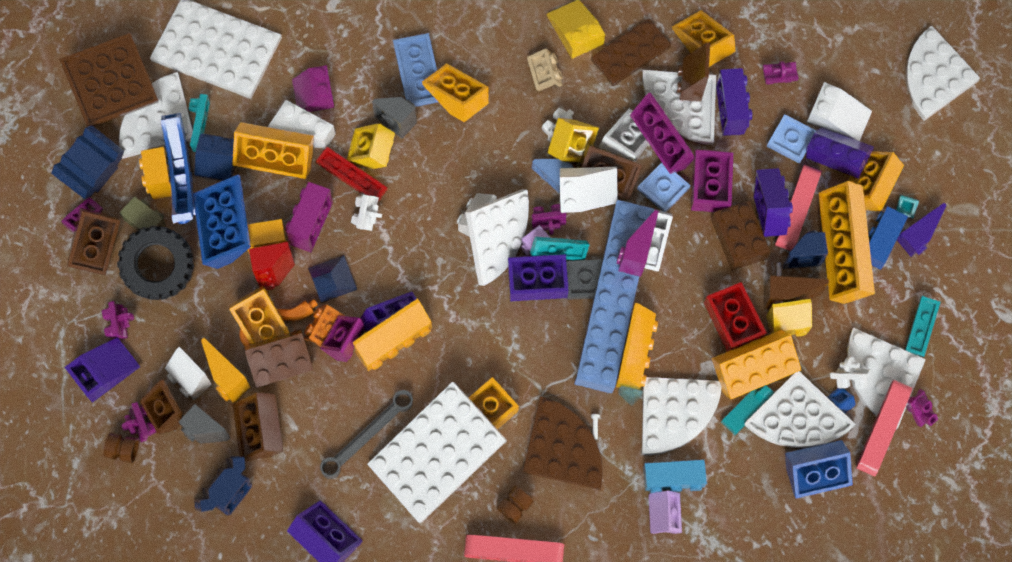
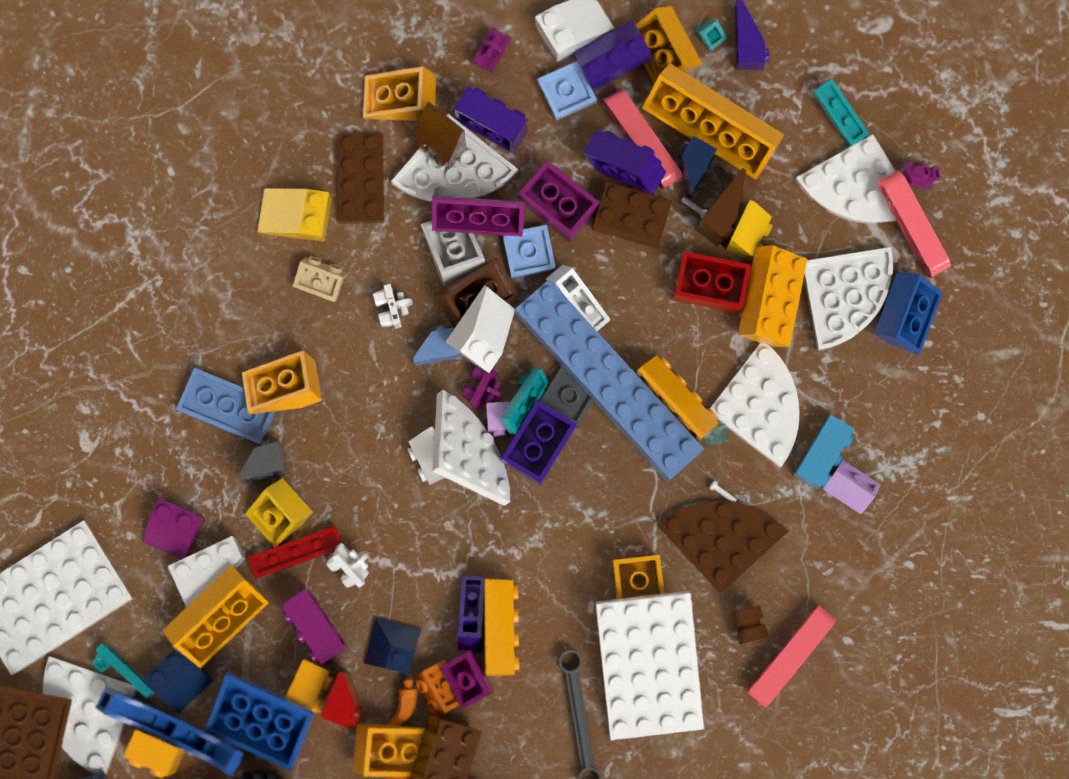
camera: 55 degrees left, 10 degrees up
(571, 139) = (418, 307): yellow slope -> none
(635, 253) = (588, 328): magenta slope -> none
(746, 408) = (805, 338): teal hinge -> none
(842, 399) = (856, 241): blue slope -> none
(849, 371) = (841, 214): white hips -> none
(885, 235) = (728, 77): blue brick -> none

